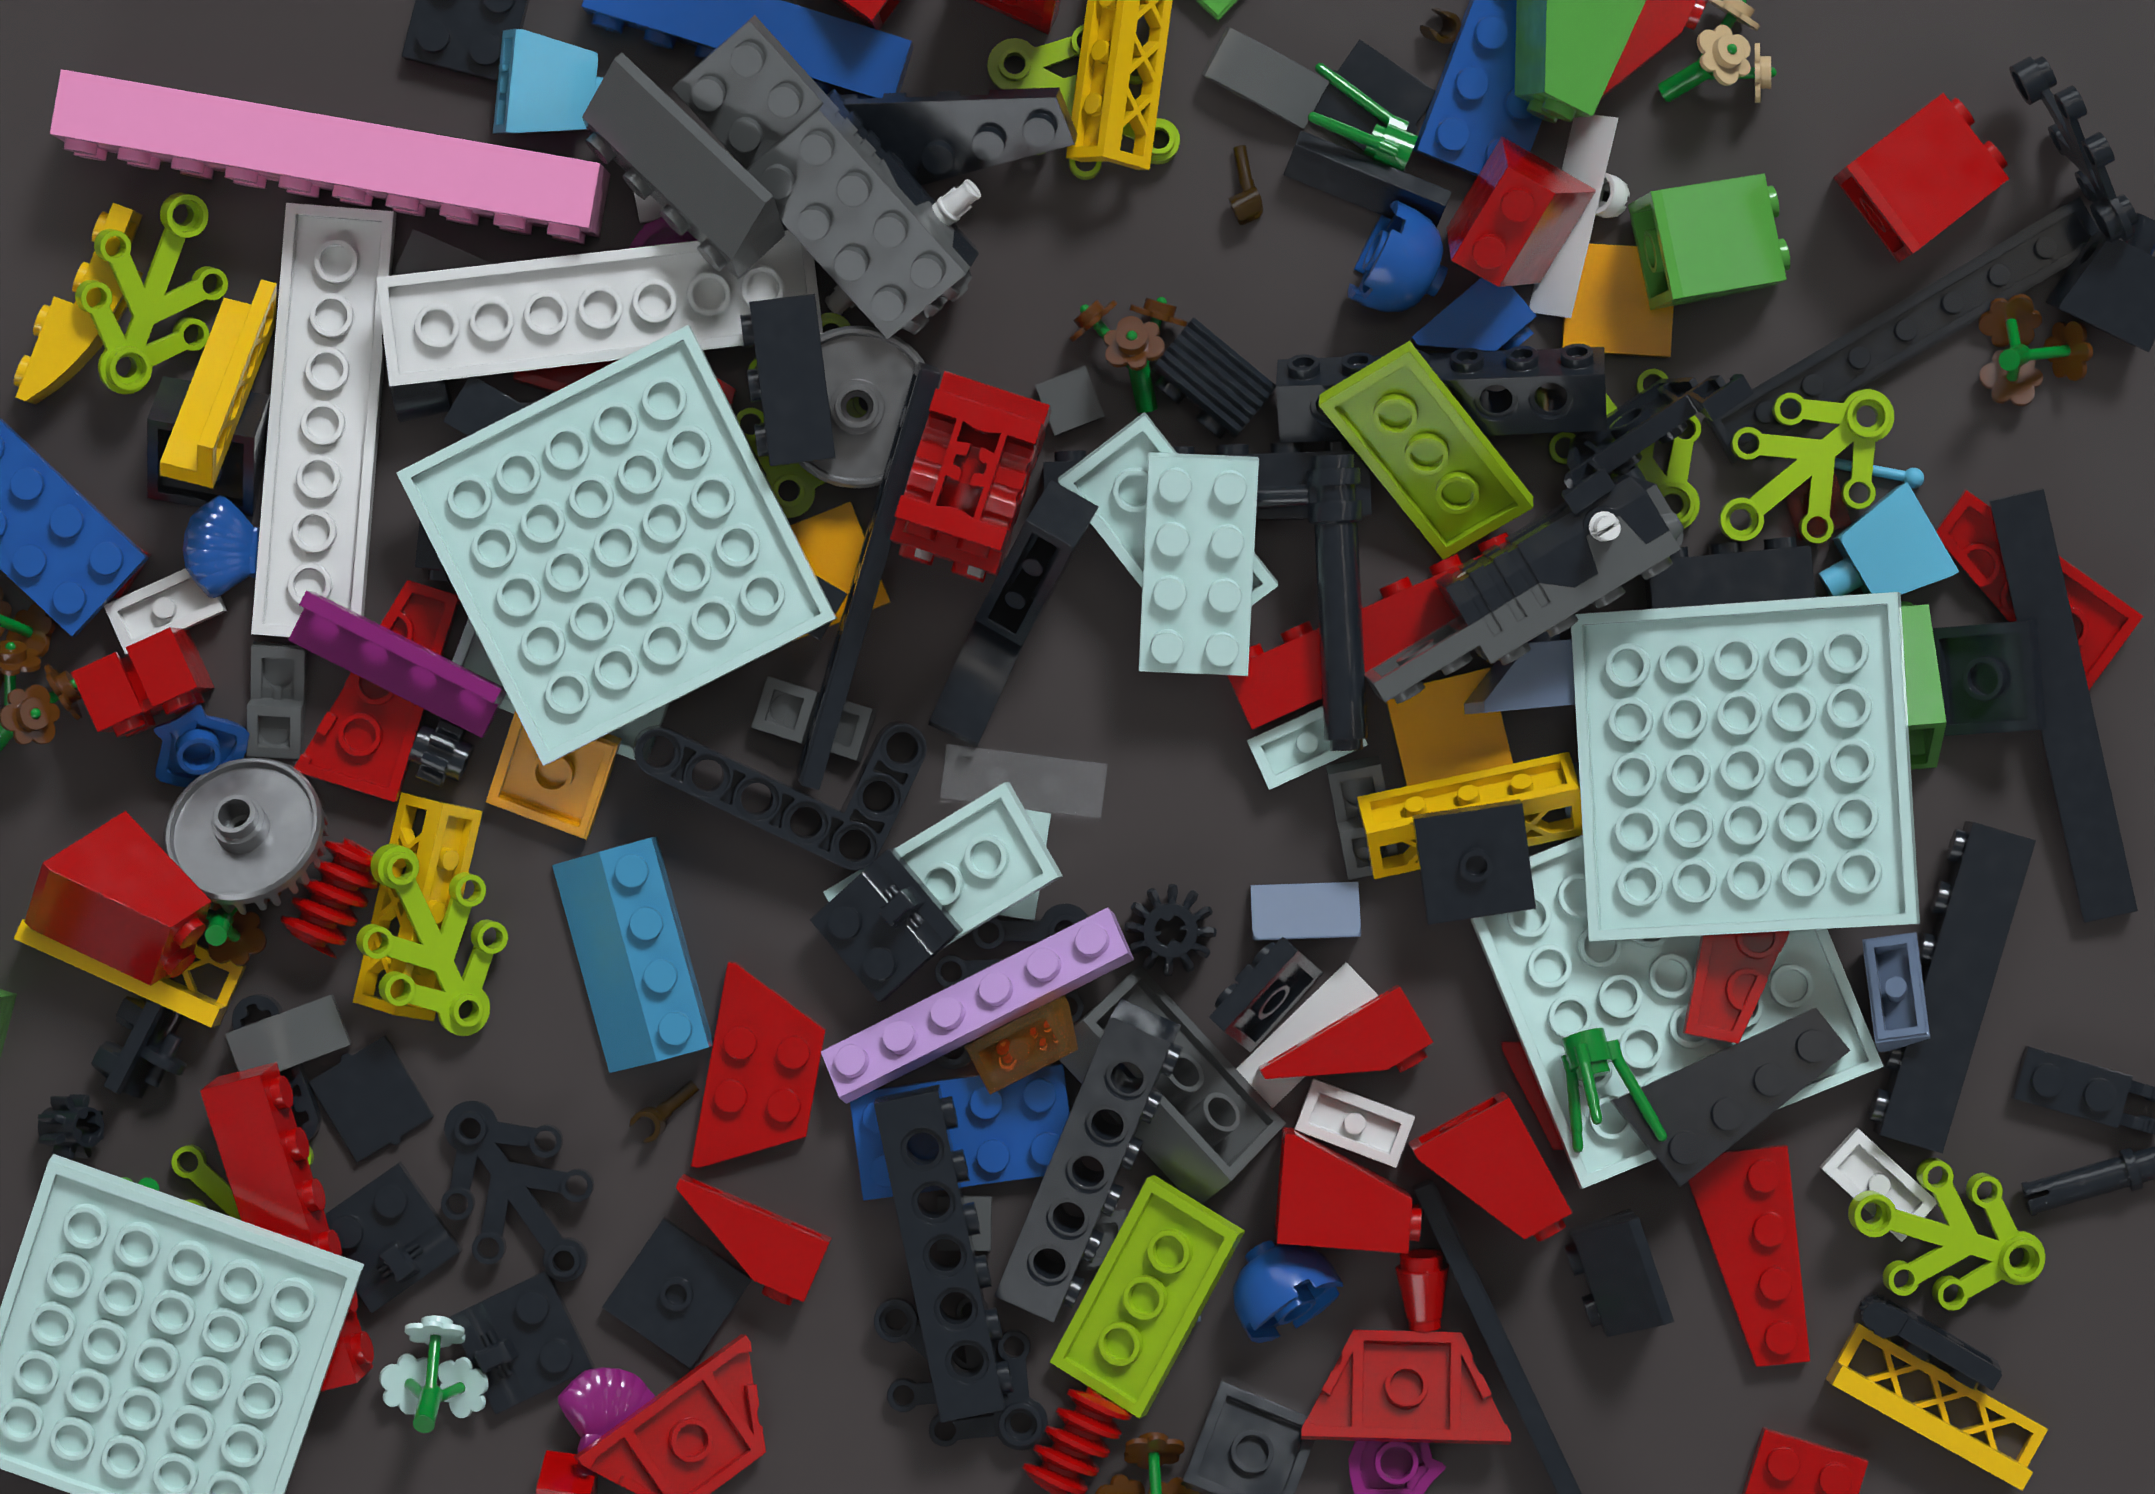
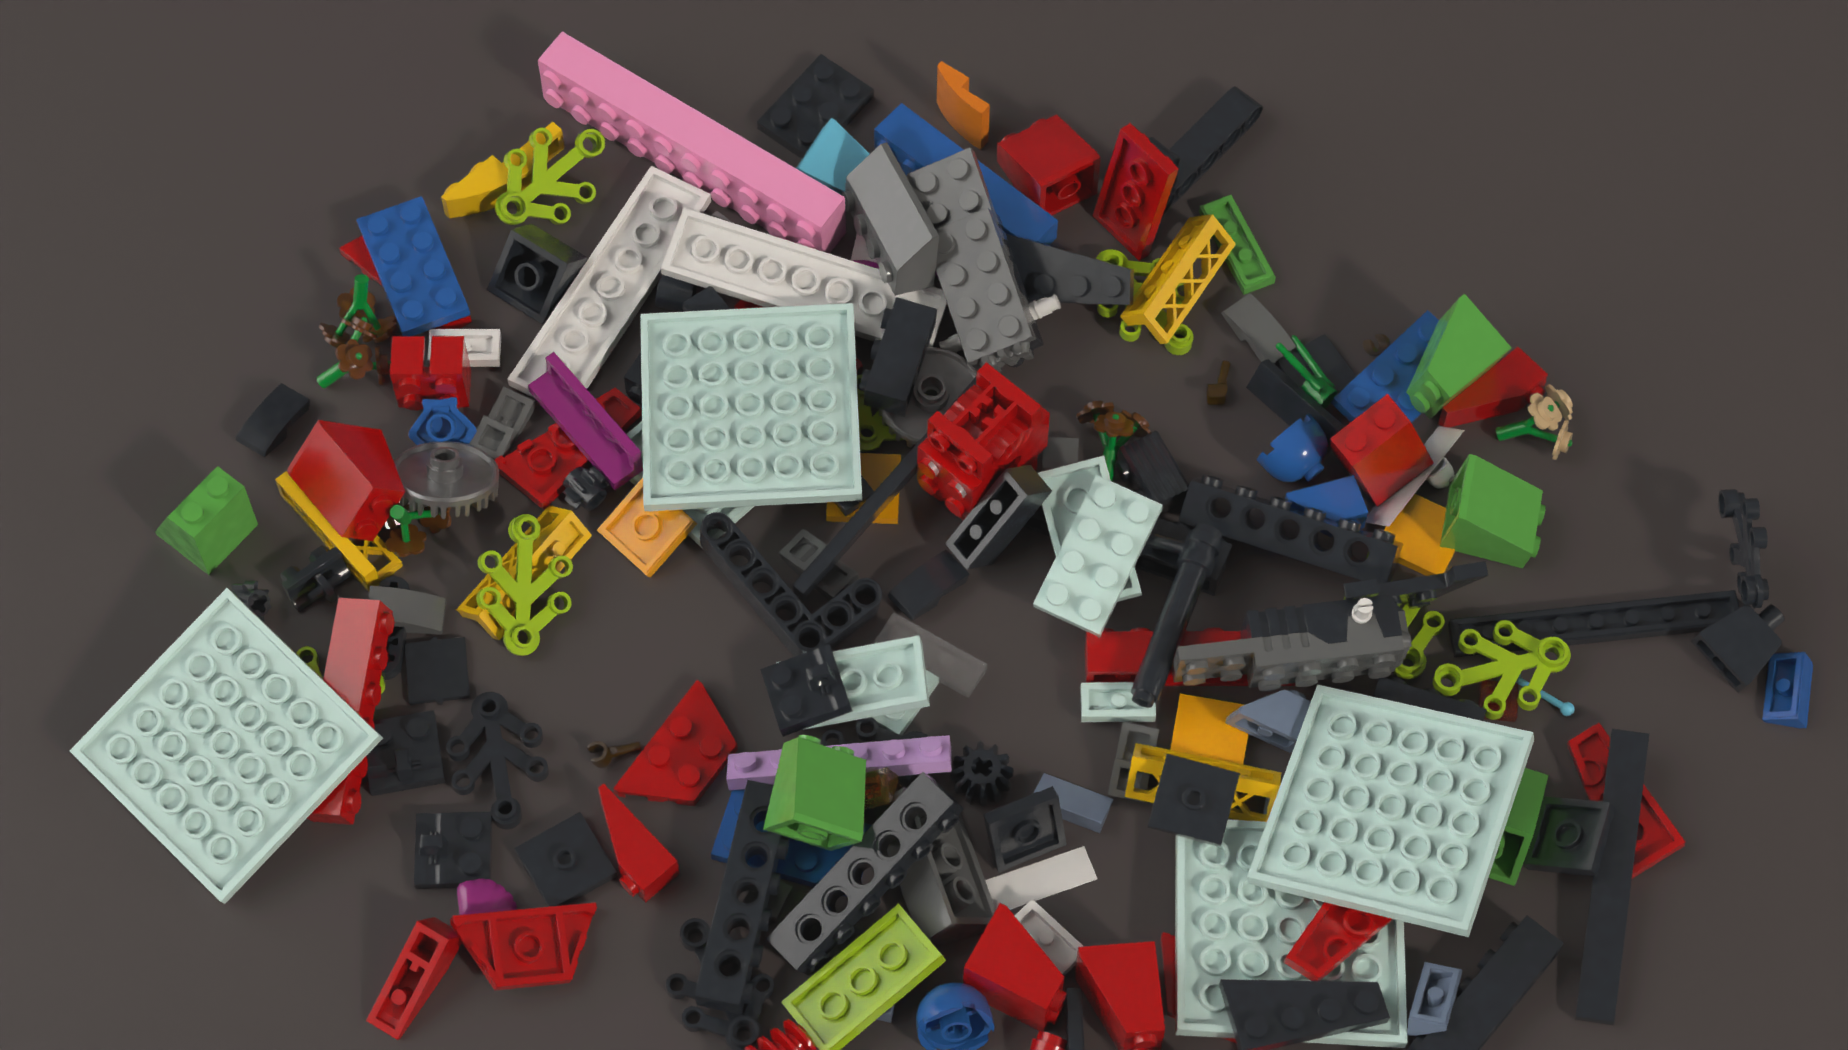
camera: 25 degrees right, 25 degrees down
(220, 388) = (564, 232): yellow fence -> none
(220, 547) = (514, 326): blue animal -> none
(333, 896) = (475, 538): red piece -> none
(413, 1381) = (373, 844): light aqua plant -> none
(633, 955) = (642, 650): dark azure slope -> none
(982, 1094) = (818, 794): none -> bright green slope
(1365, 1040) = (1071, 889): red slope -> none
(1426, 450) = (1265, 545): lime plate -> none
(1588, 1058) = (1216, 947): green plant -> none
(1889, 549) = (1552, 745): medium azure torso -> none
(1923, 176) = (1638, 534): red slope -> none
(2013, 370) = (1663, 649): reddish brown plant -> none

